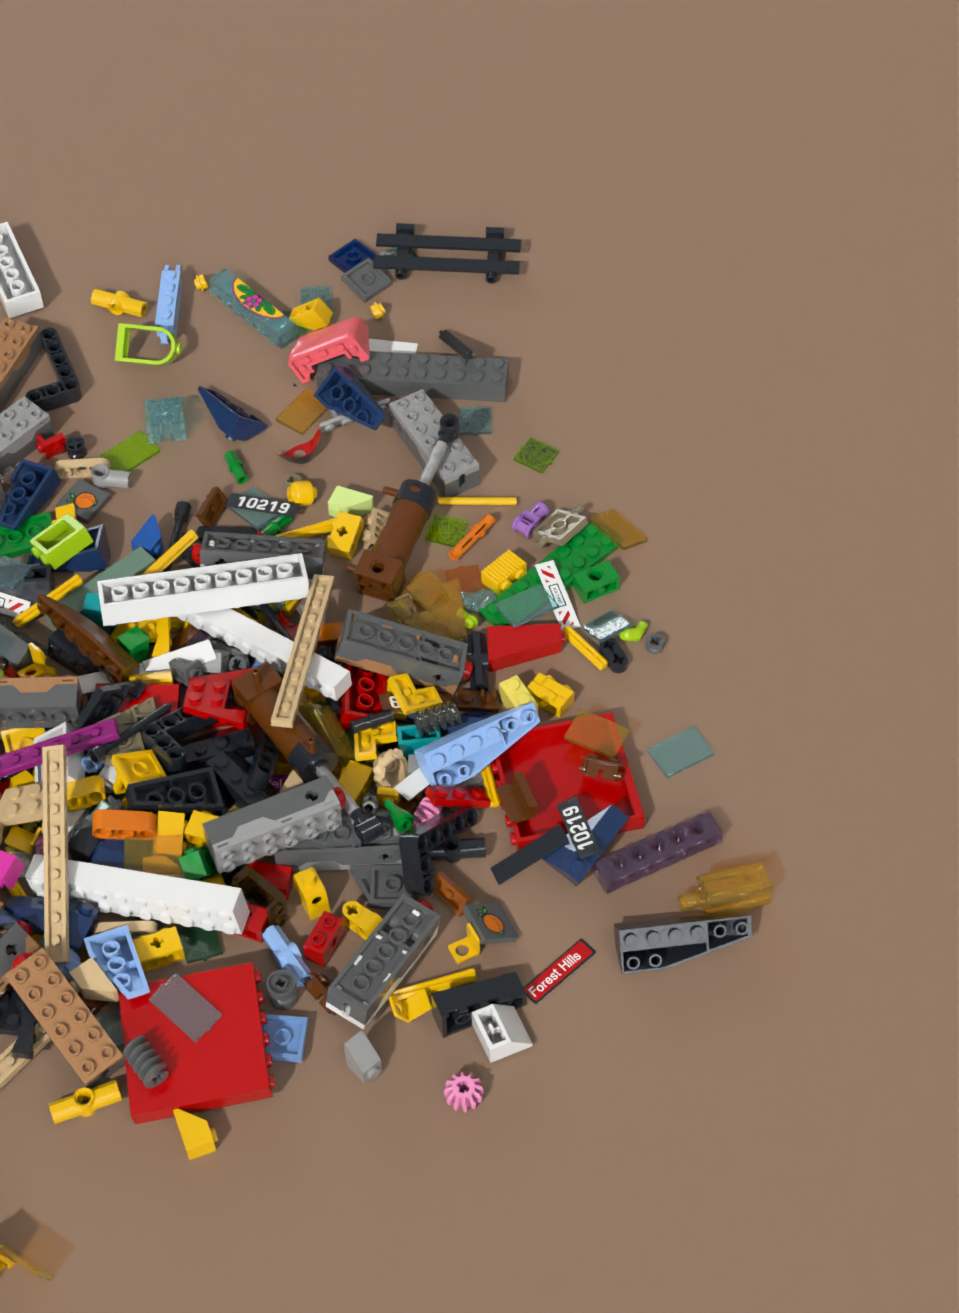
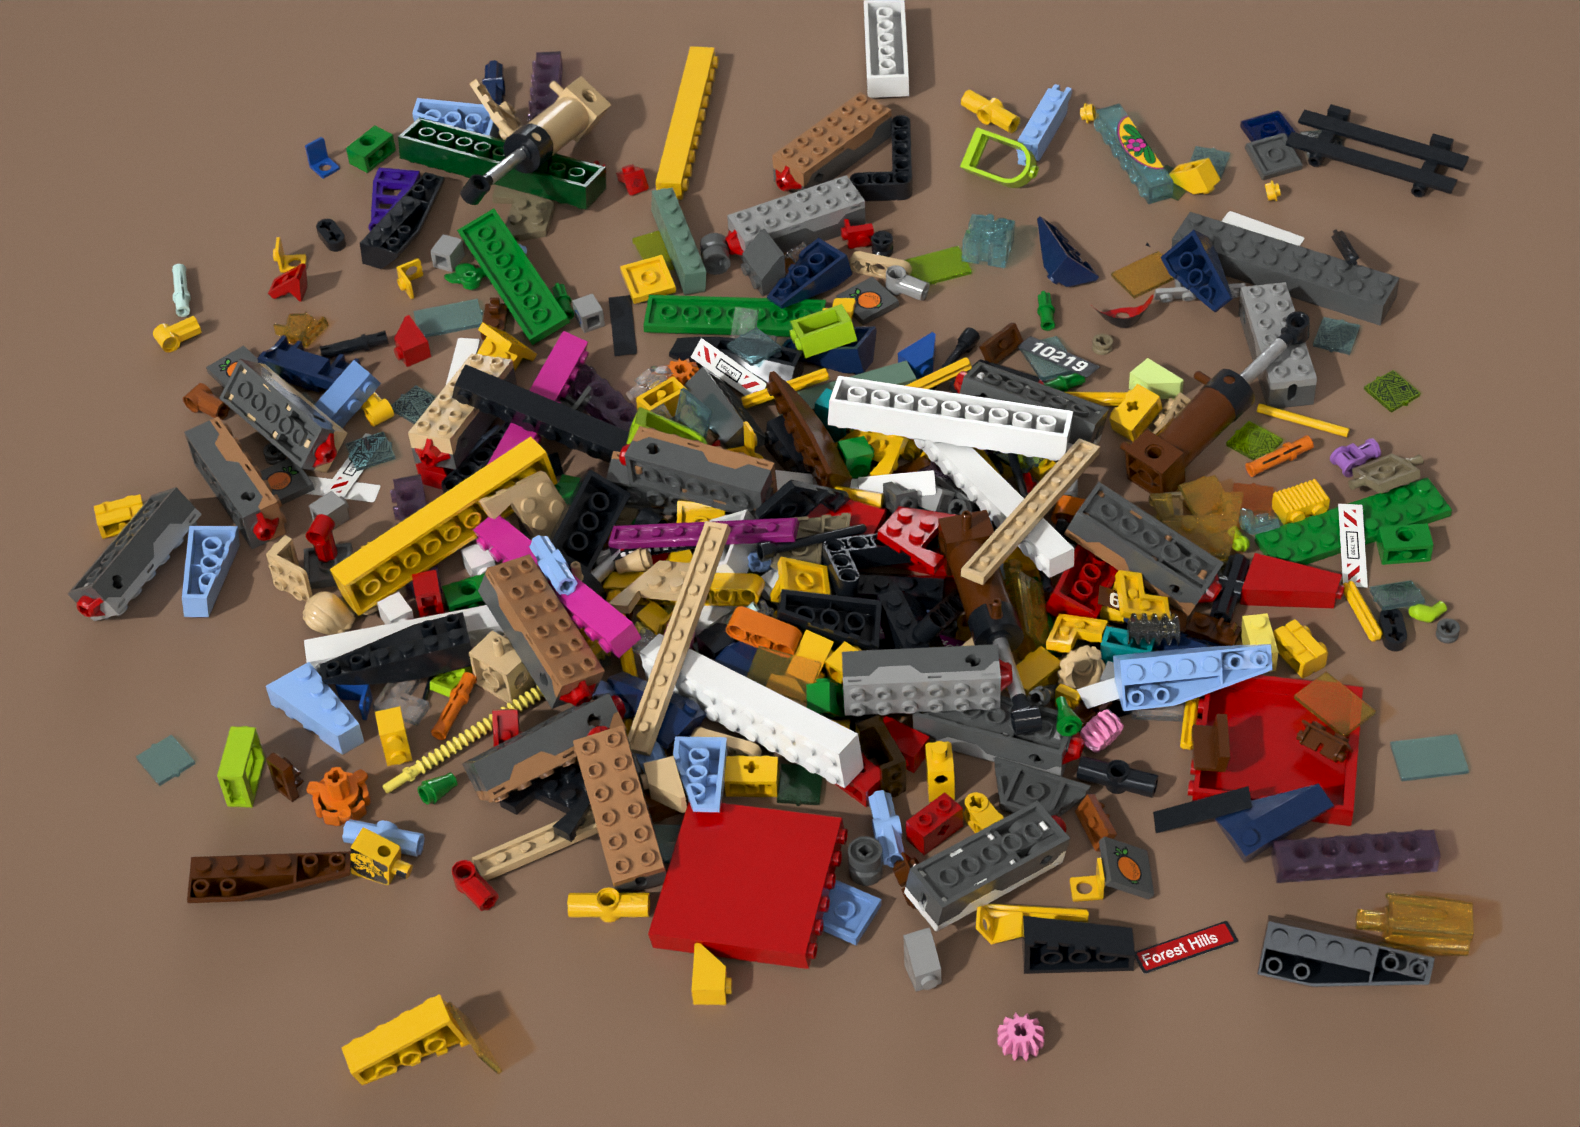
camera: 25 degrees right, 5 degrees down
(145, 1062) = (684, 881): dark grey piece -> none
(185, 1007) = (751, 841): clear light blue piece -> none
(302, 493) = (1107, 356): yellow head -> none
(344, 337) = (1222, 206): coral windscreen -> none
(371, 721) = (1080, 611): black pin -> none
(419, 840) = (1071, 753): black beam -> none
(457, 796) = (1145, 721): red plate -> none
(500, 1031) = (1089, 986): white slope -> none
(526, 605) = (1310, 544): clear light blue piece -> none
(578, 828) = (1268, 797): black sticker -> none
(618, 529) = (1454, 495): clear yellow piece -> none

